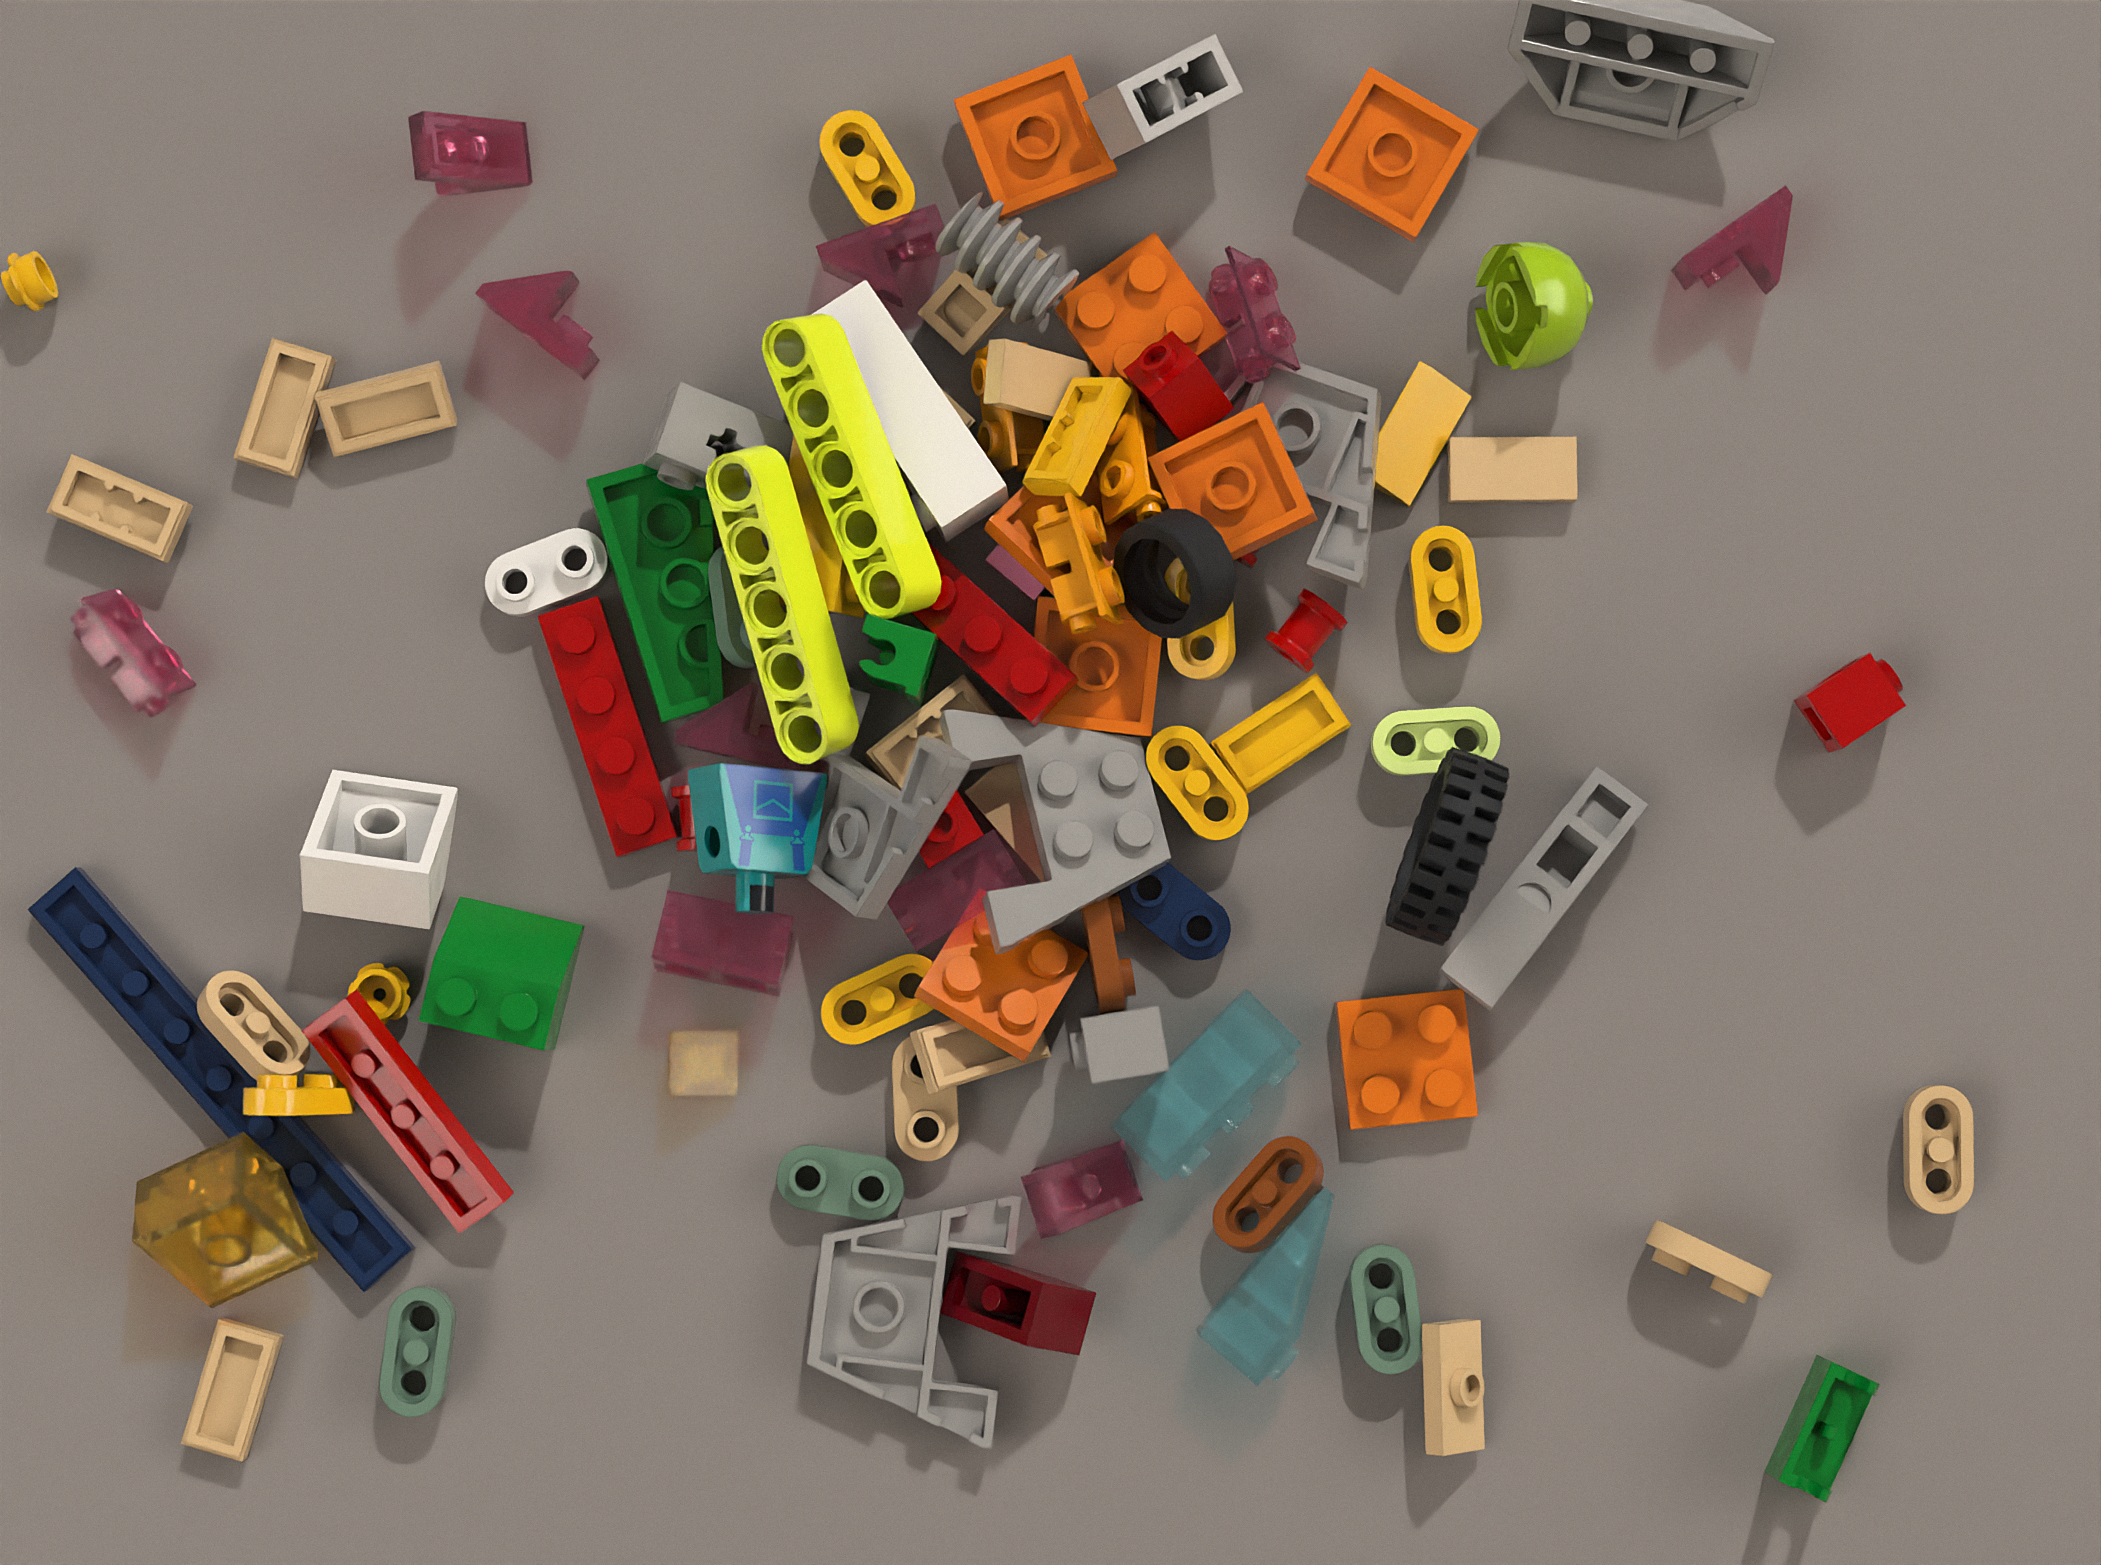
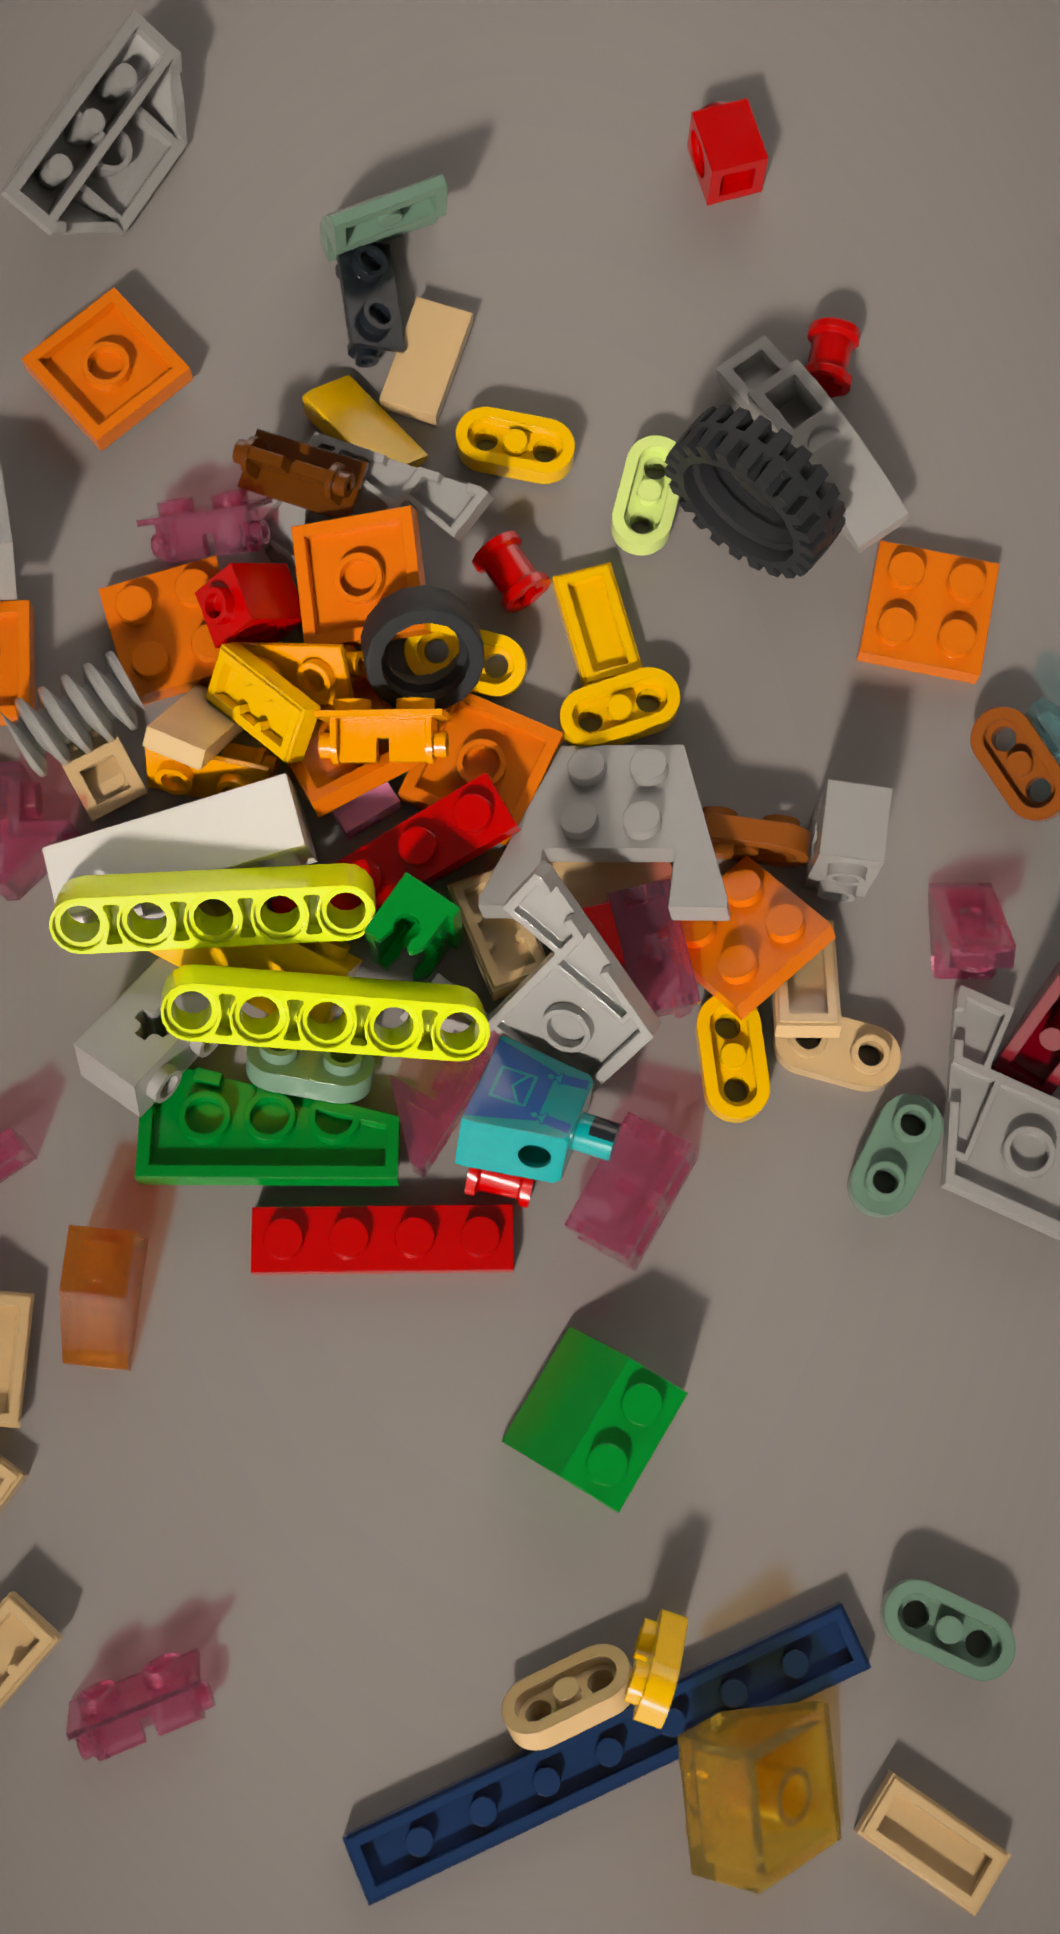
camera: 75 degrees left, 10 degrees down
(378, 849) = (429, 1506): white slope -> none
(392, 981) = (555, 1554): yellow plate -> none
(407, 1111) = (702, 1559): plate -> none
(473, 487) = (101, 1296): none -> clear orange slope
(546, 572) = (211, 1249): white plate -> none
(702, 1063) = (741, 1250): clear yellow slope -> none
(1173, 909) = (733, 770): dark blue plate -> none
(1208, 1087) = (884, 745): clear light blue brick -> none
(1324, 391) = (299, 474): none -> reddish brown hinge
(1533, 304) = (285, 291): lime cylinder -> none
(1554, 390) = (370, 303): none -> black hinge
(1639, 375) = (384, 216): none -> sand green slope
(1648, 878) = (830, 353): none -> red bush
(1754, 237) = (302, 105): clear pink slope -> none

